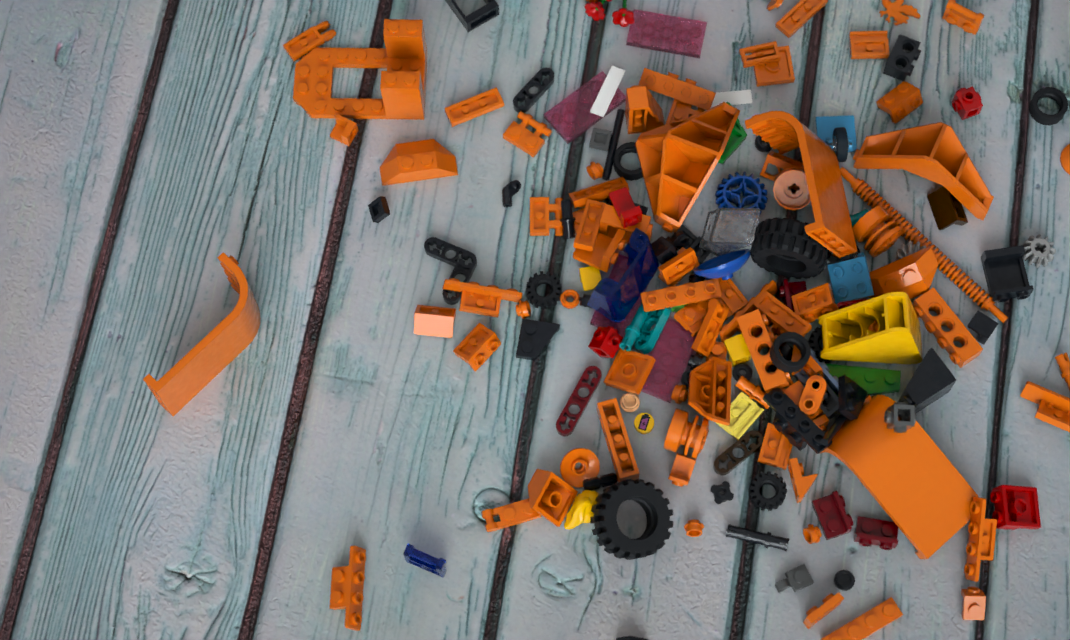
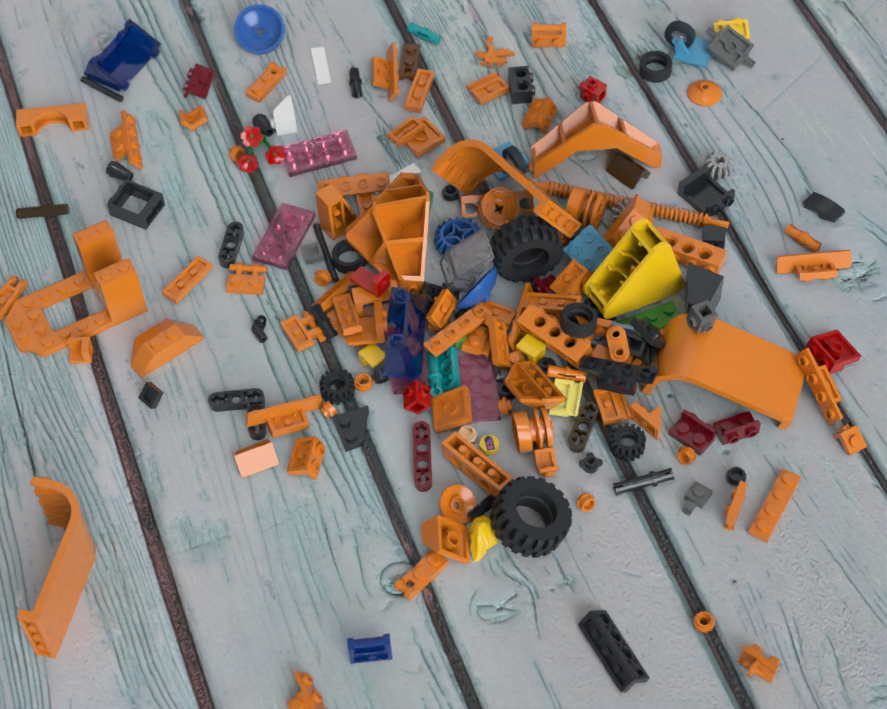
camera: 30 degrees left, 15 degrees down
(607, 91) = (296, 214): white sticker -> none

